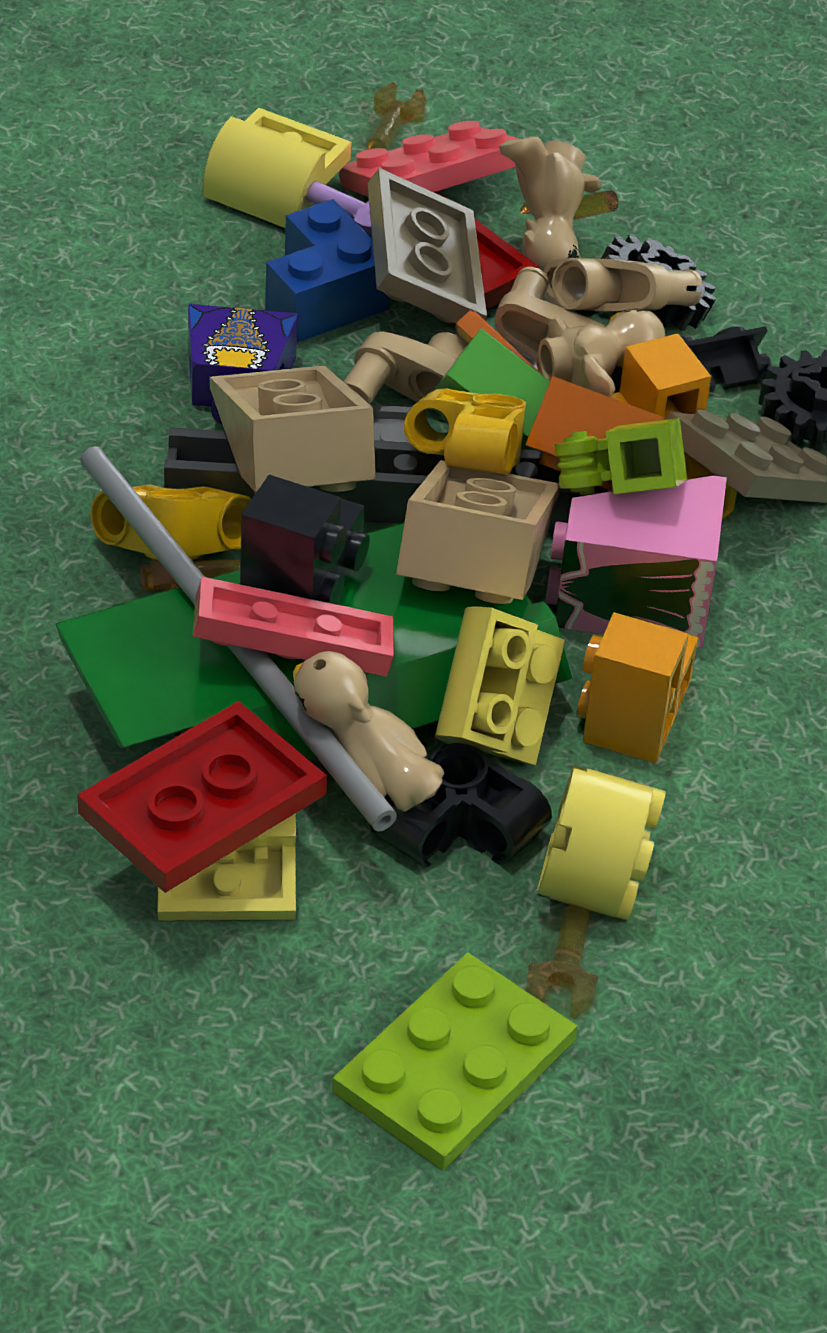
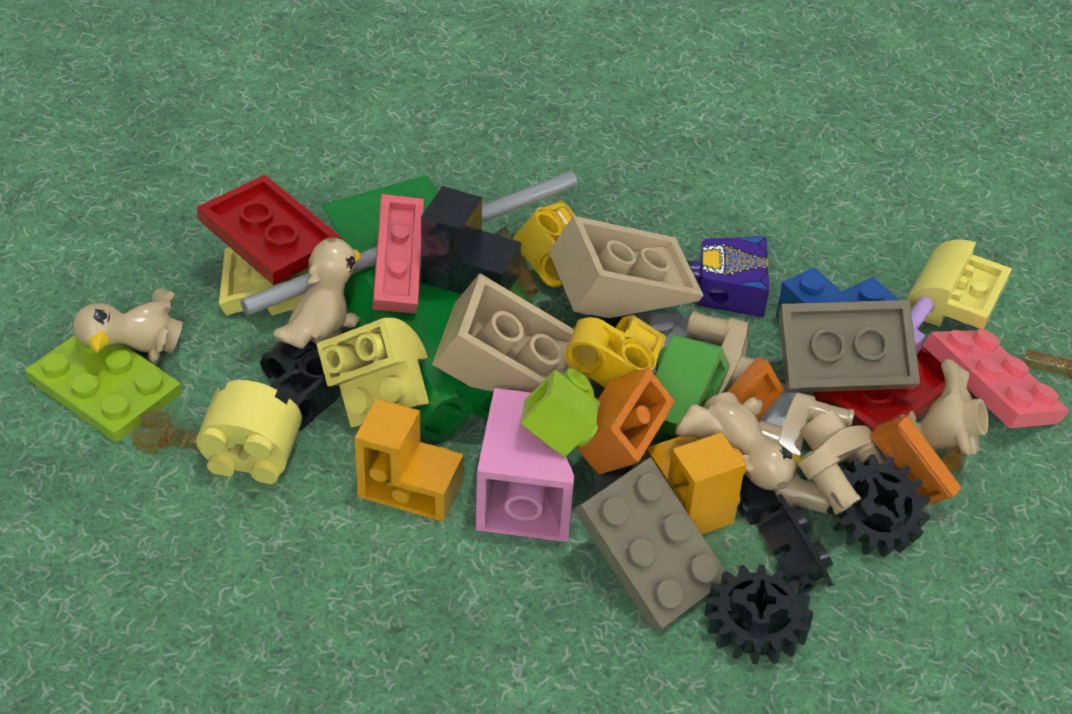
camera: 90 degrees right, 0 degrees up
(365, 994) = (141, 328): none -> tan animal
(595, 227) = (909, 447): none -> orange tile

